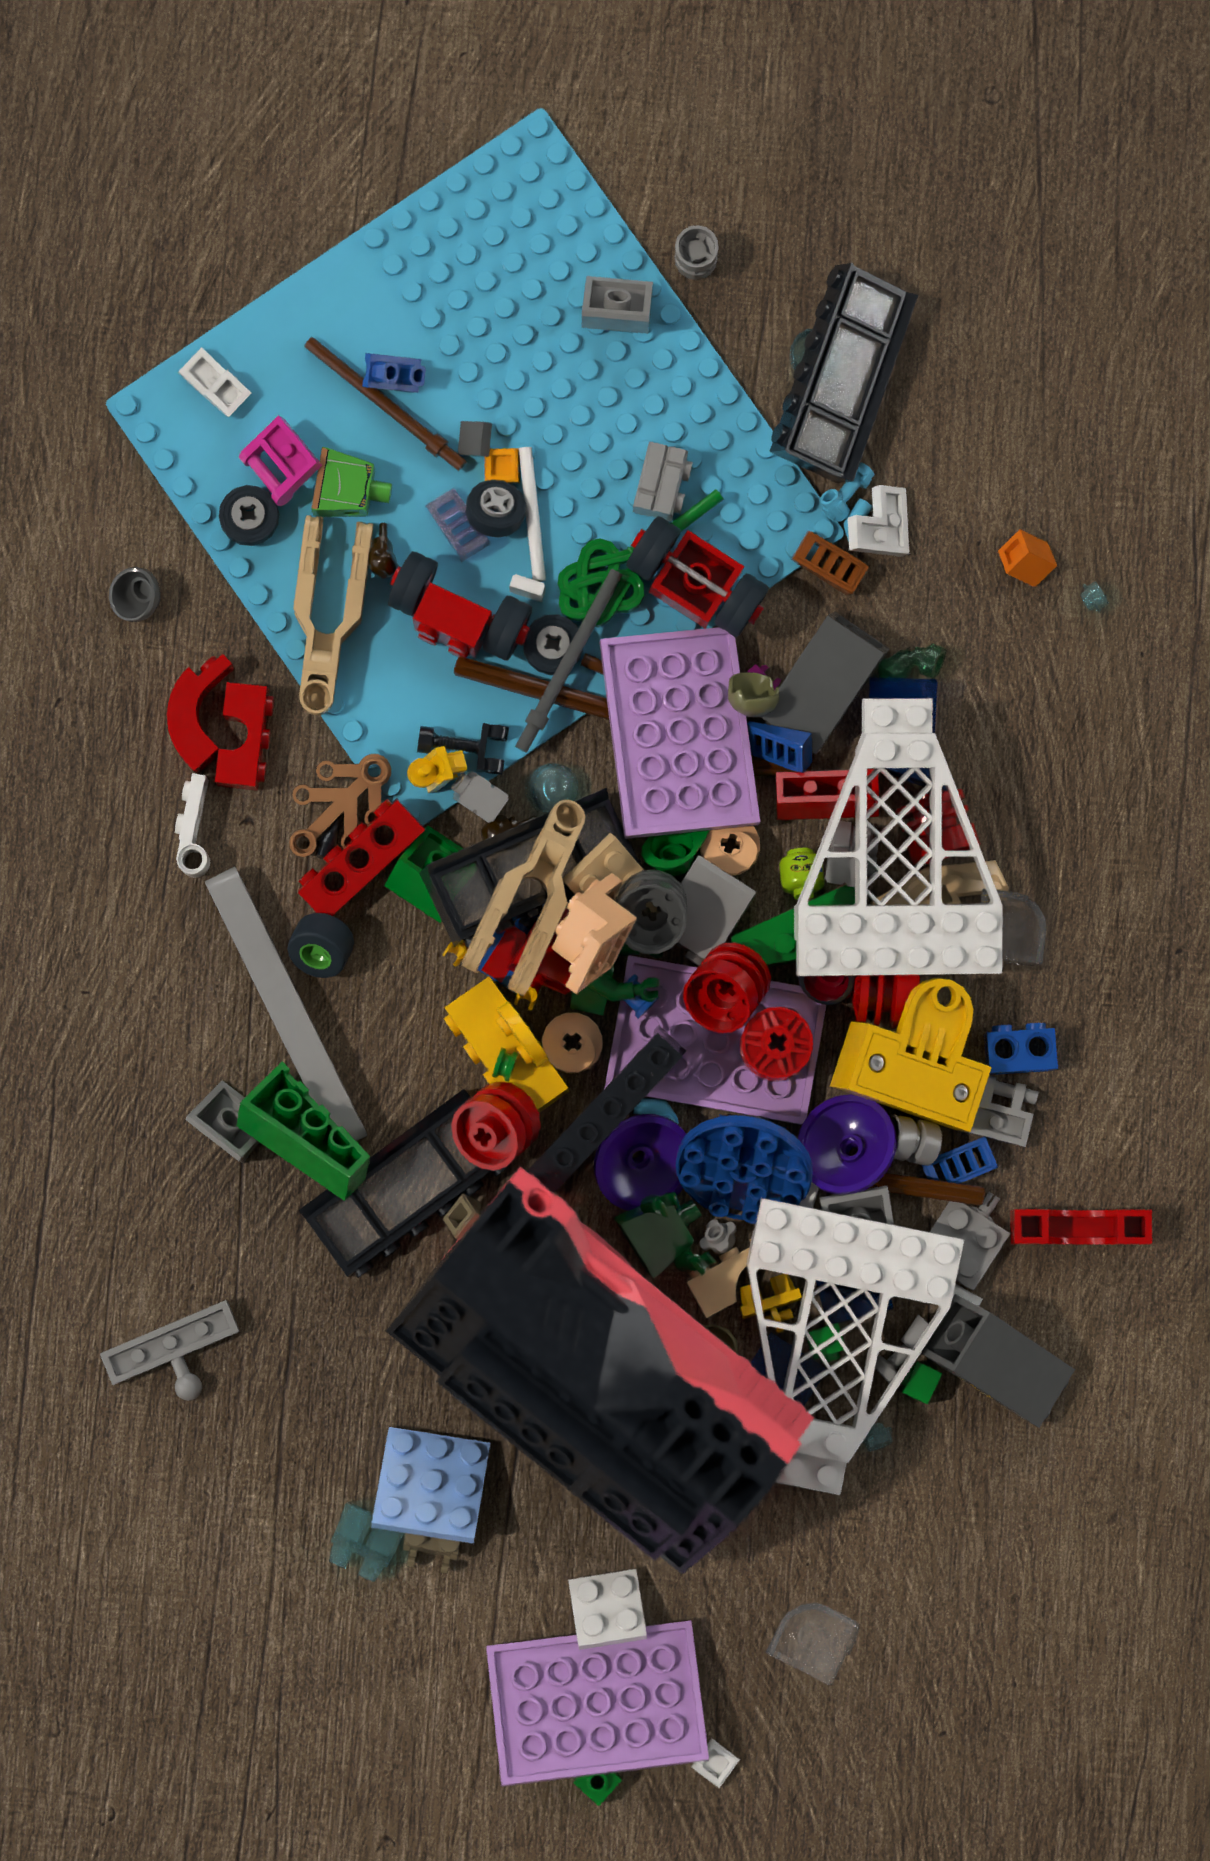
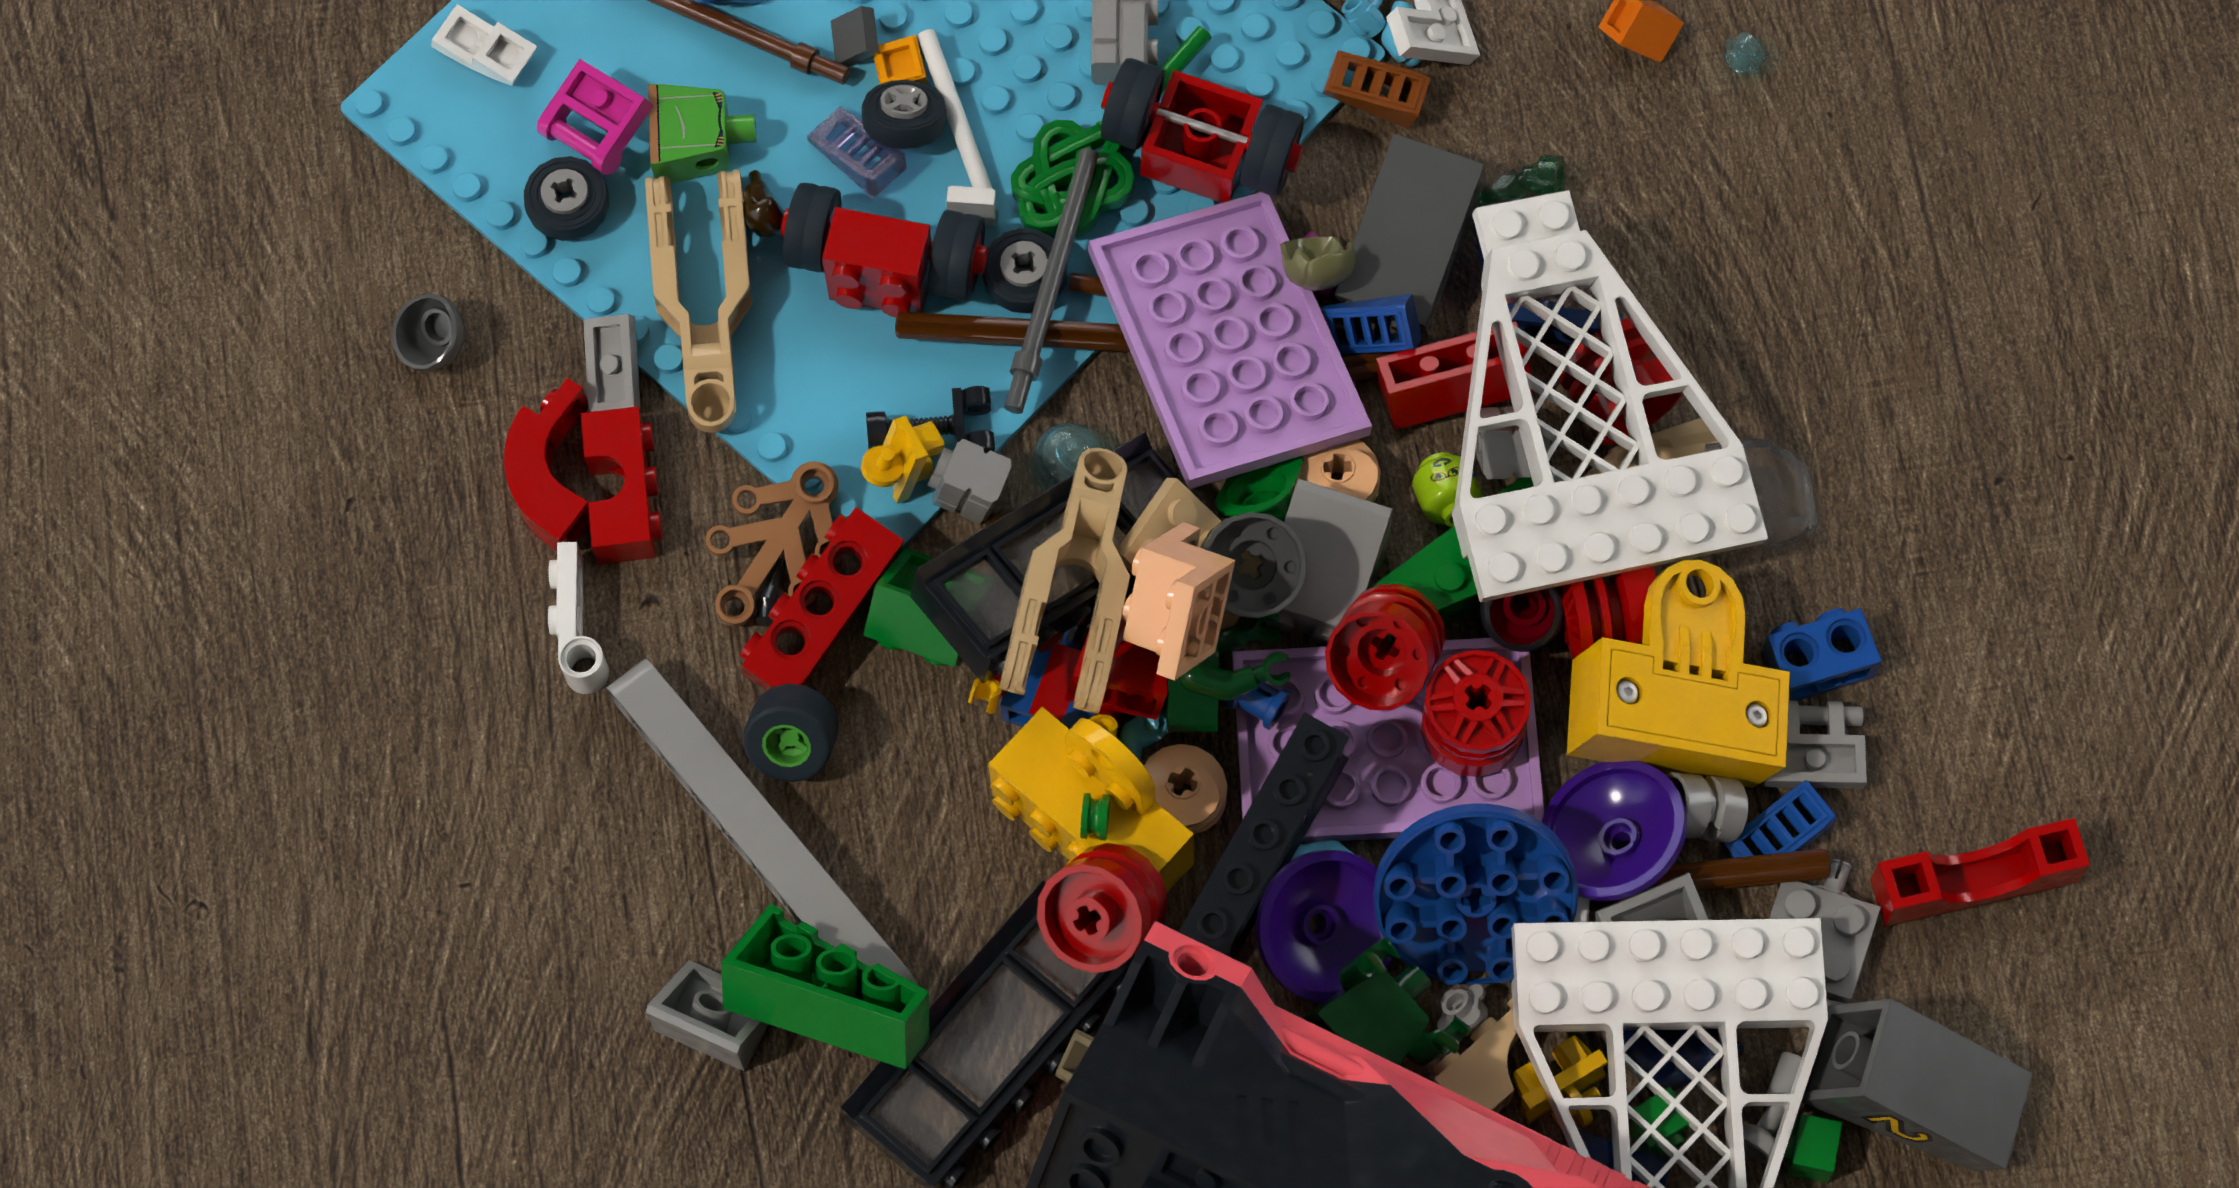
camera: 10 degrees left, 15 degrees down
(255, 647) = (611, 362): none -> light grey plate
(546, 1001) = (1142, 732): none -> medium azure arm

